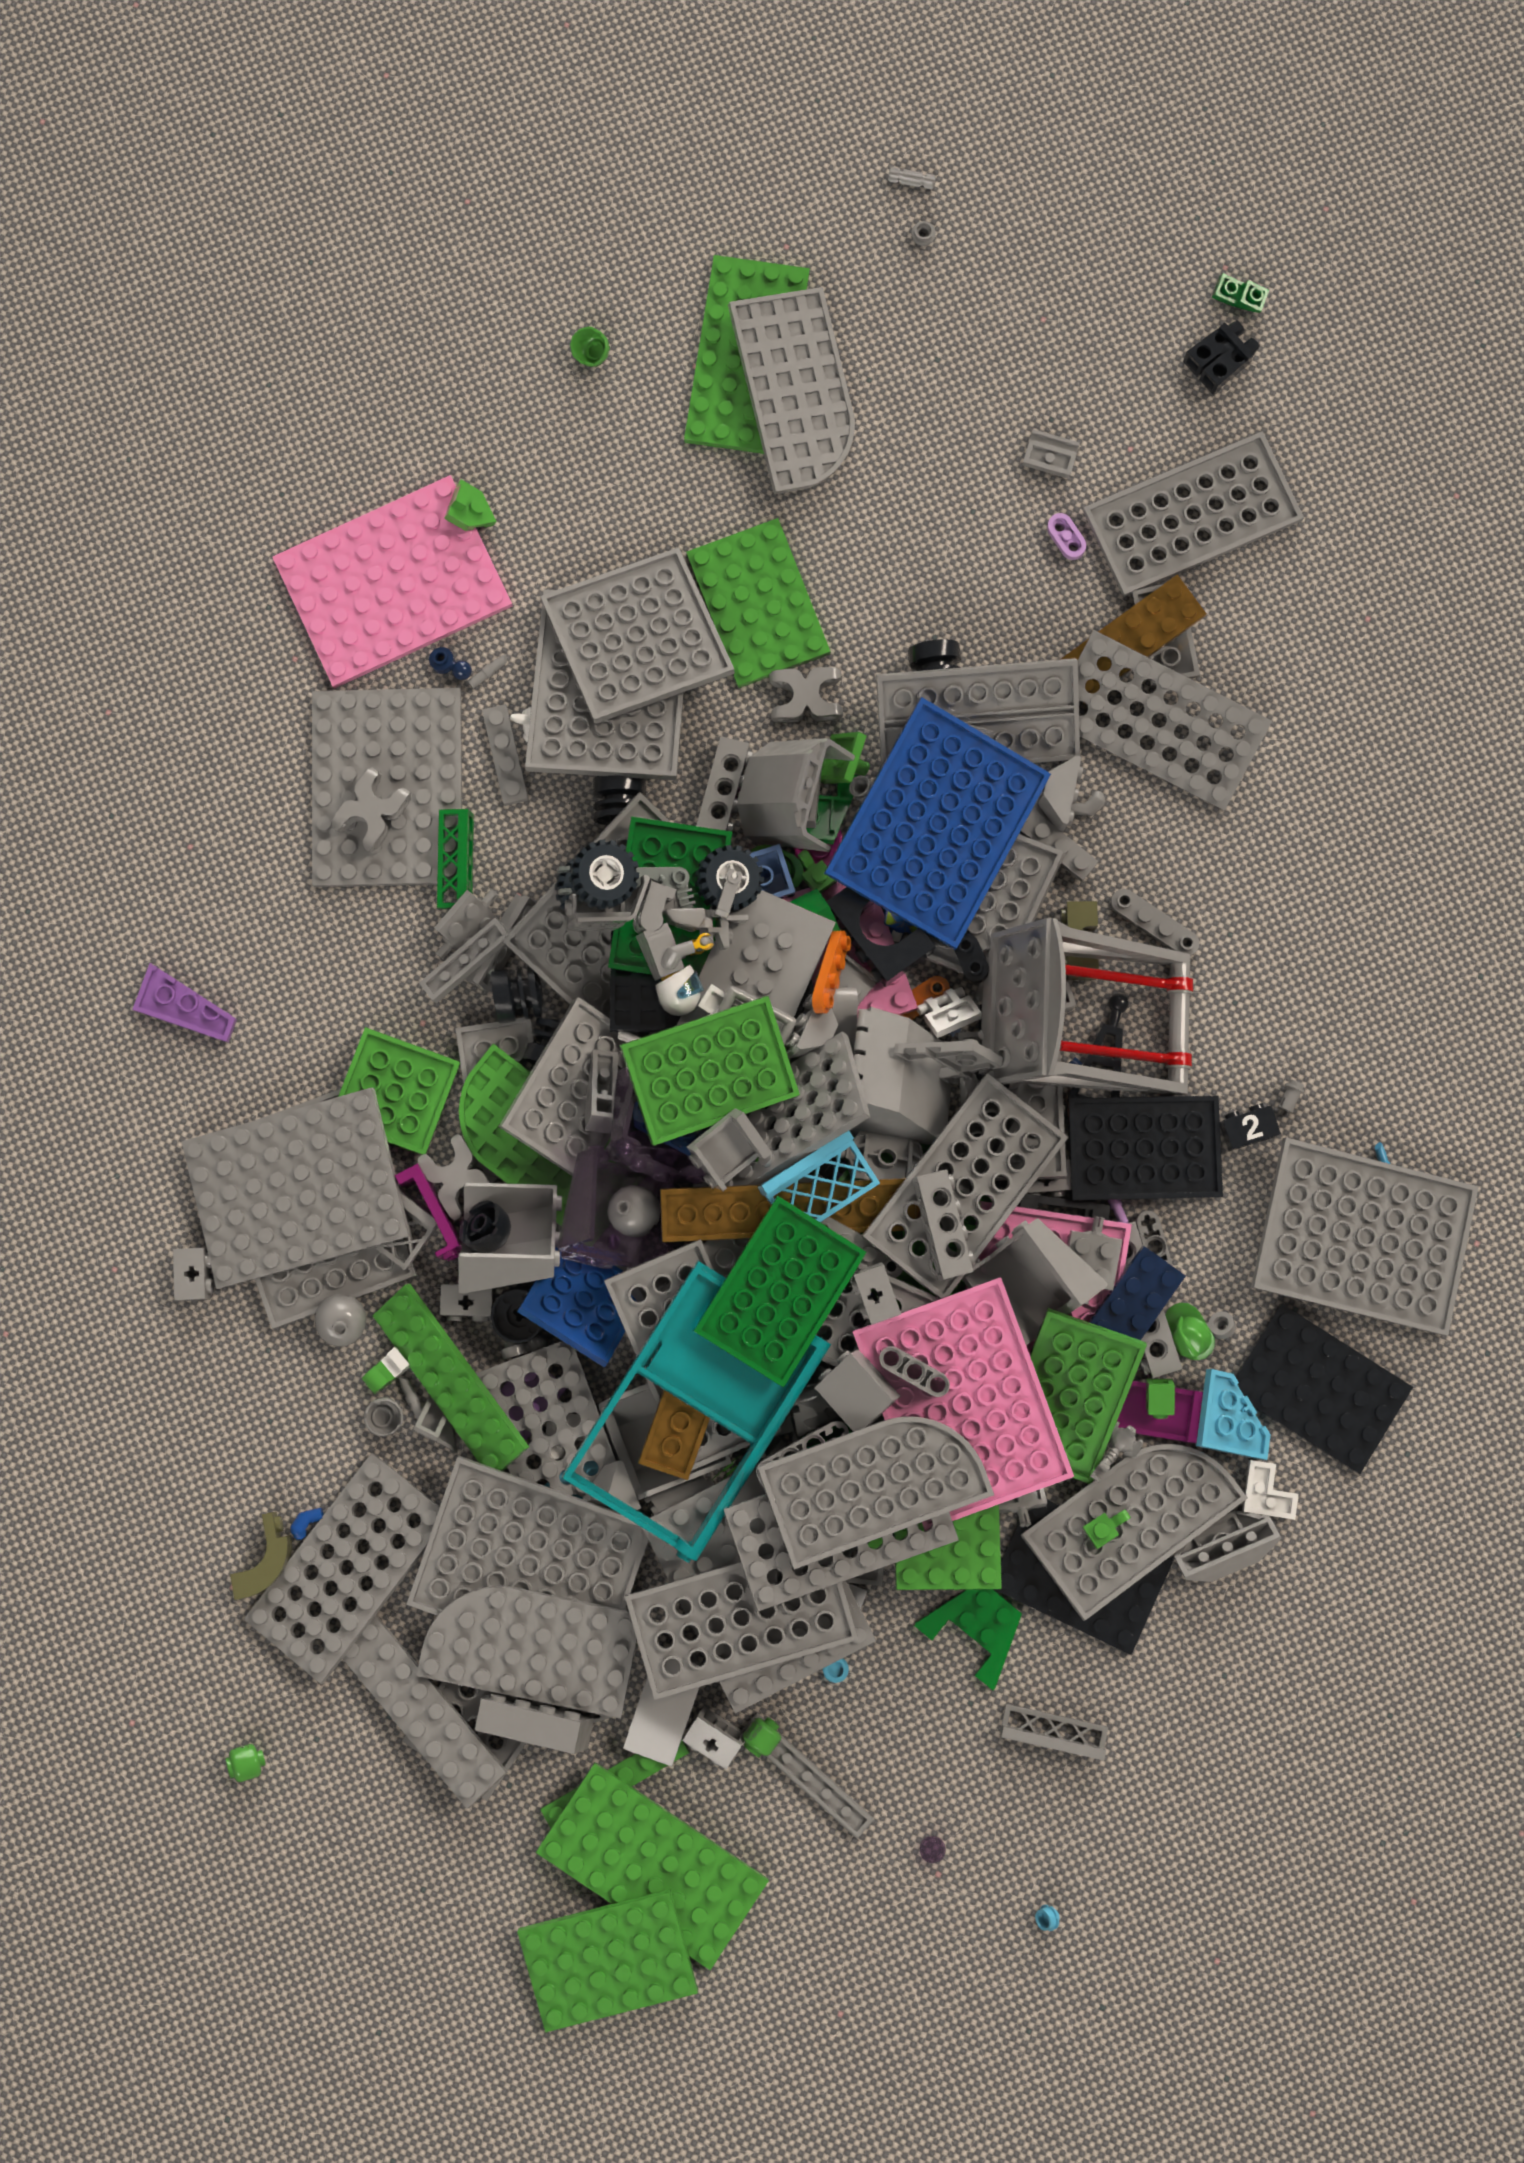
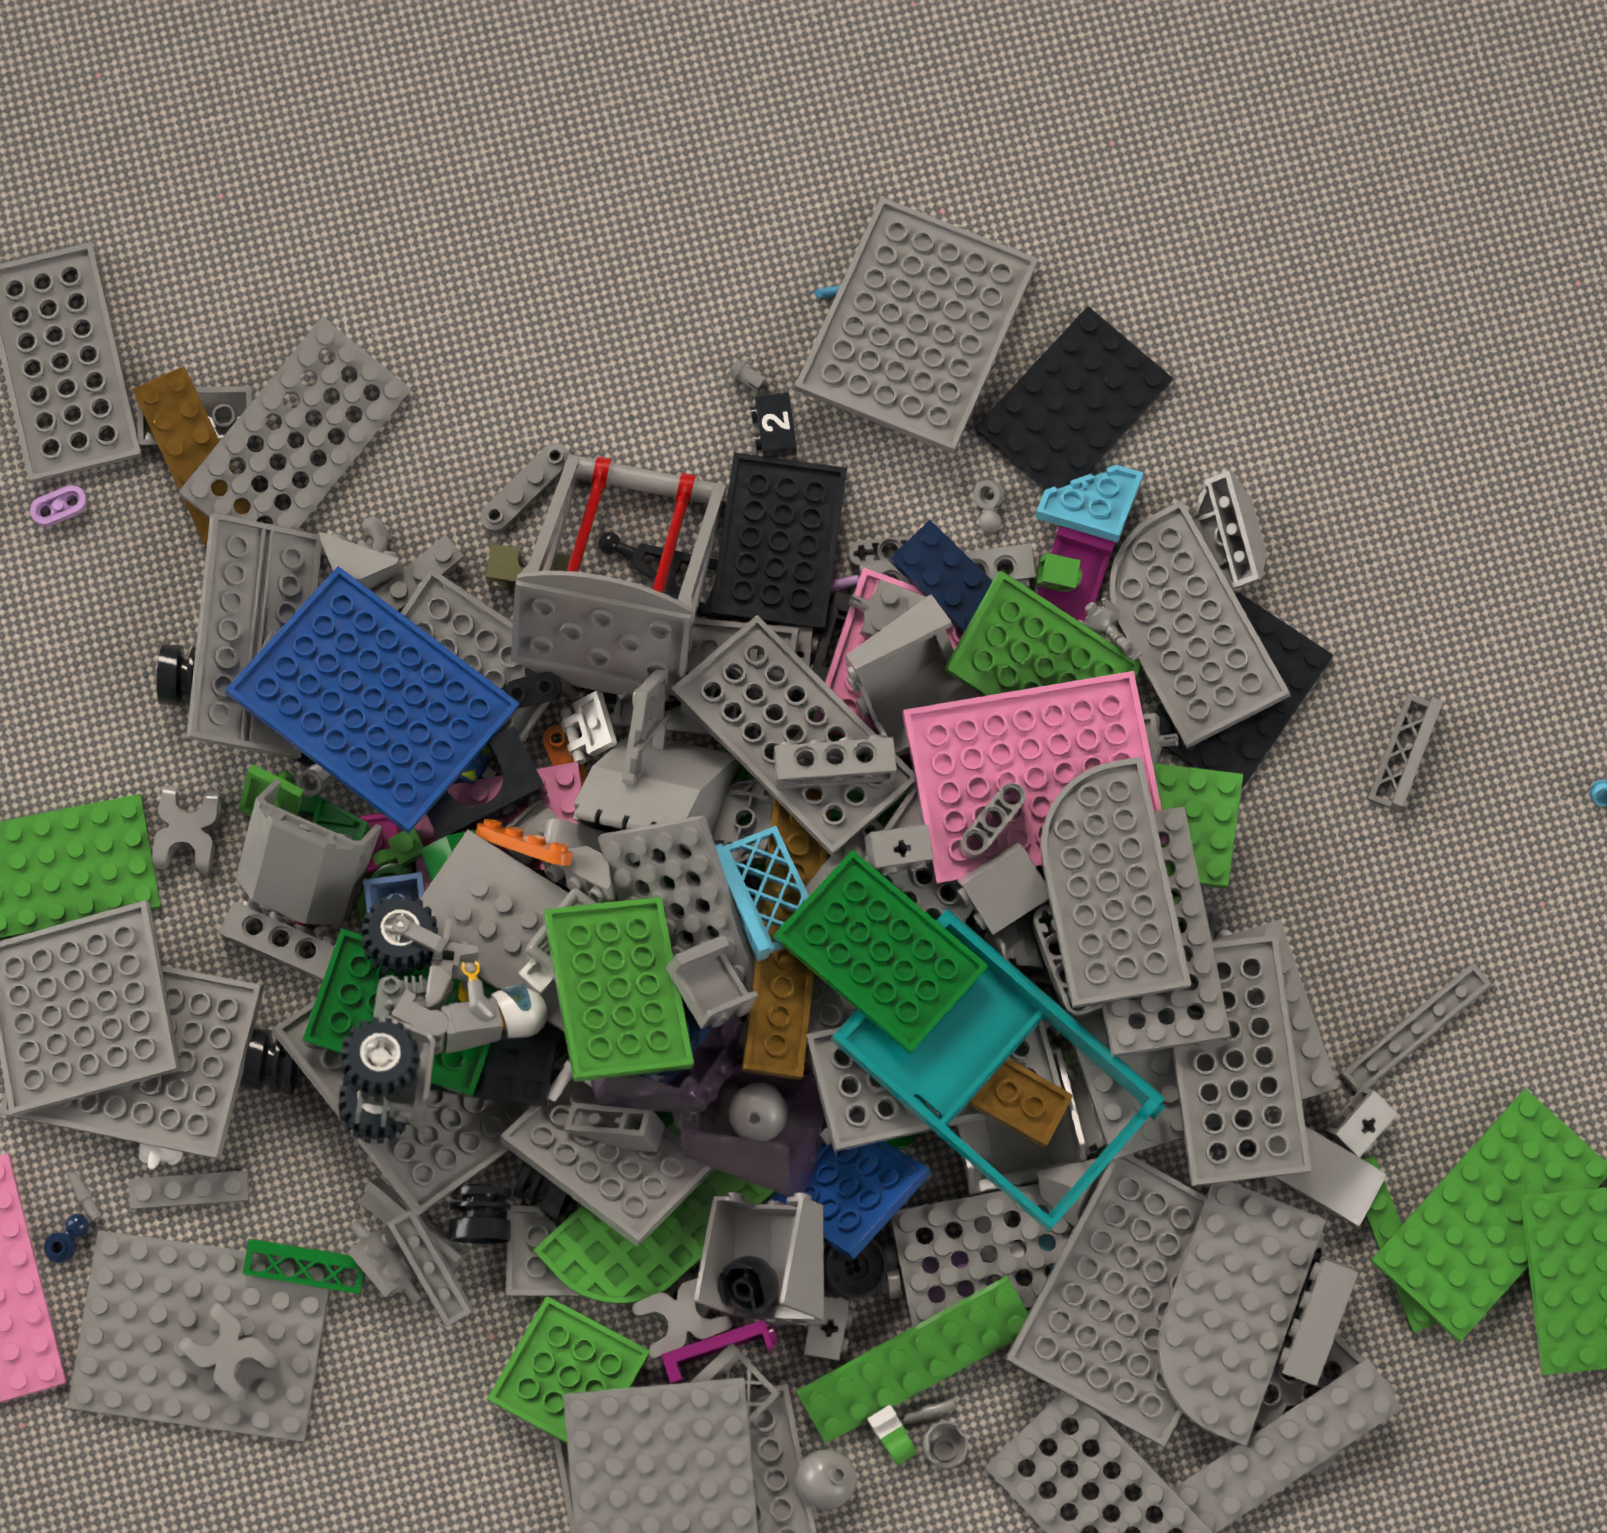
camera: 85 degrees left, 5 degrees down
(435, 1426) = (963, 1388): light grey slope -> none
(762, 1736) = (1367, 1068): bright green head -> none
(837, 1671) = (1309, 977): medium azure tile -> none
(932, 1849) = (1514, 904): clear purple plate -> none
(985, 1619) = (1272, 806): green wing -> none
(1103, 1530) = (1193, 657): bright green plate -> none
(1190, 1331) = (990, 528): bright green piece -> none
(1262, 1497) = (1179, 485): white plate -> none

